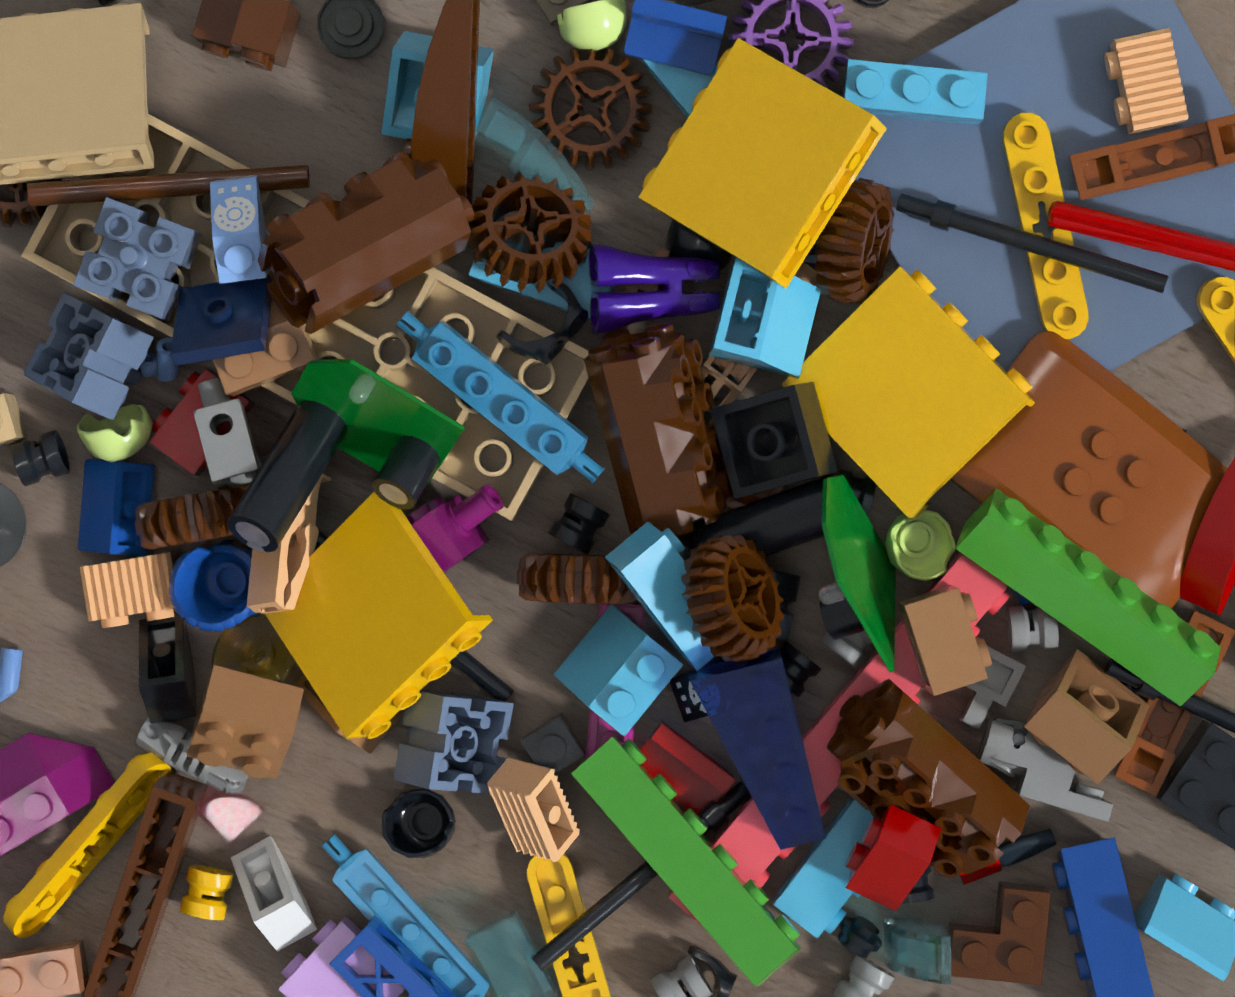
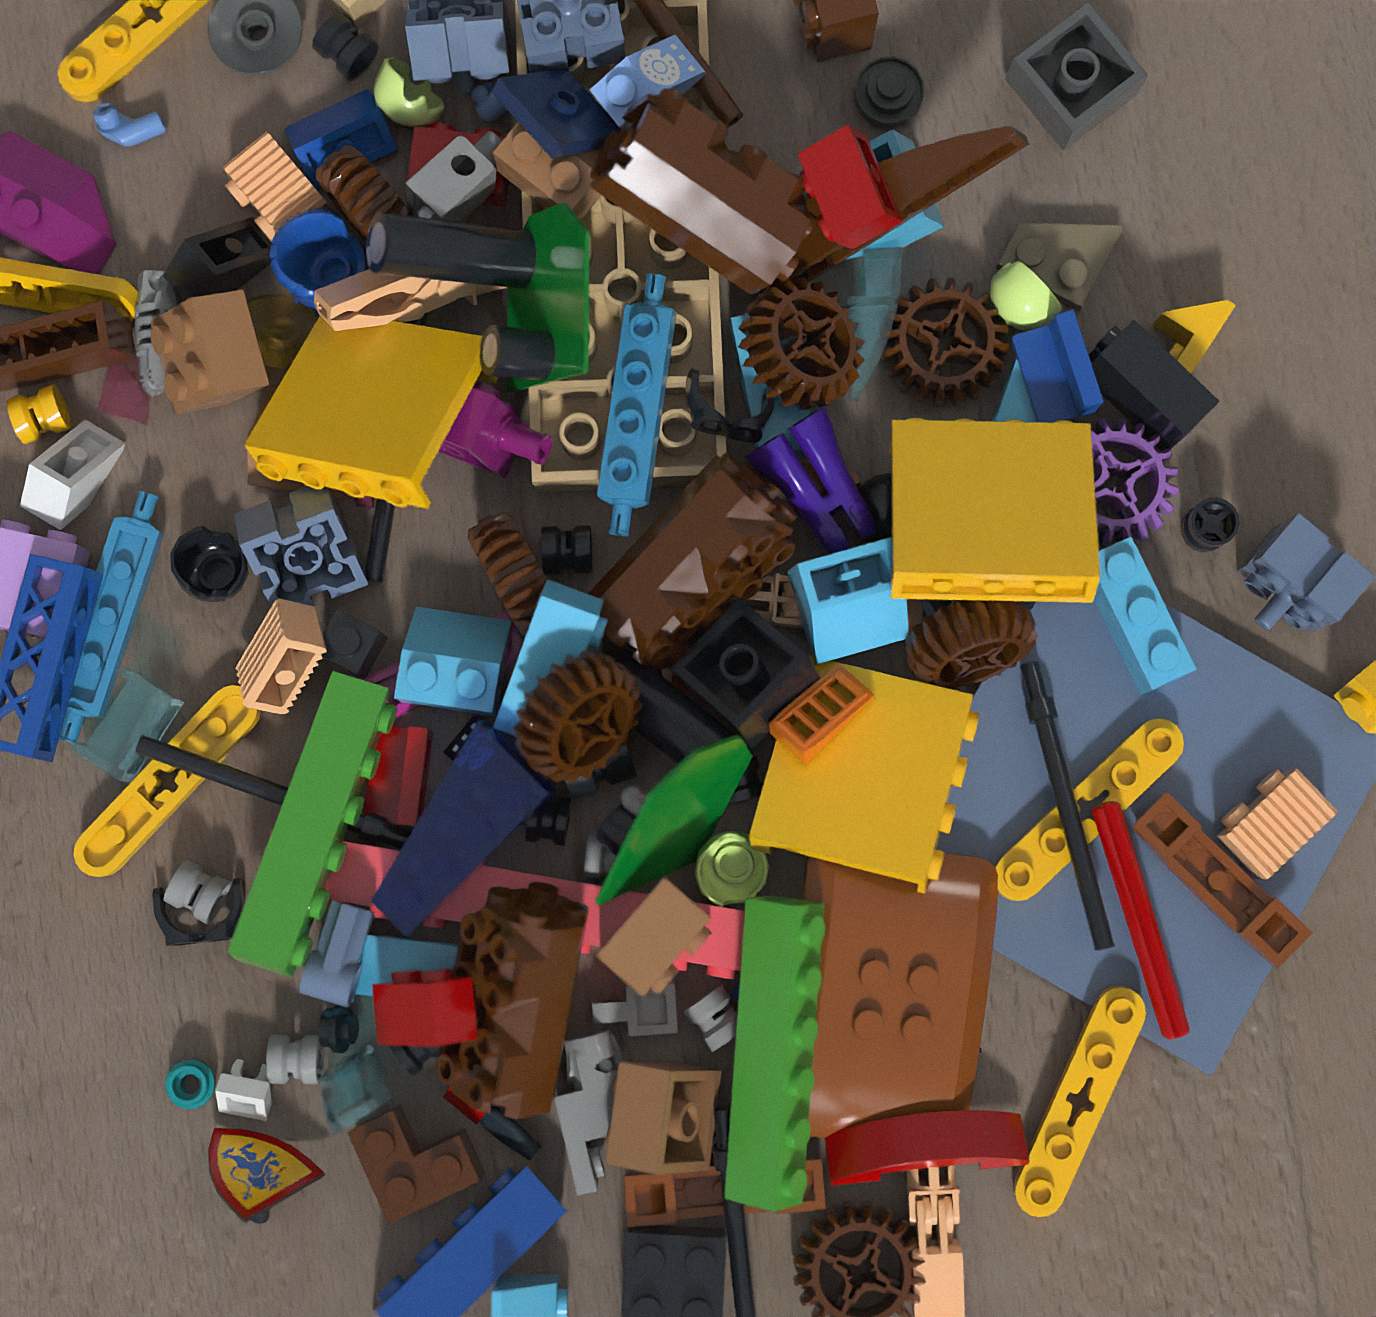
camera: 60 degrees right, 5 degrees down
(429, 119) = (848, 188): none -> red brick
(811, 909) = (334, 966): none -> sand blue piece
(850, 435) = (807, 749): none -> orange slope

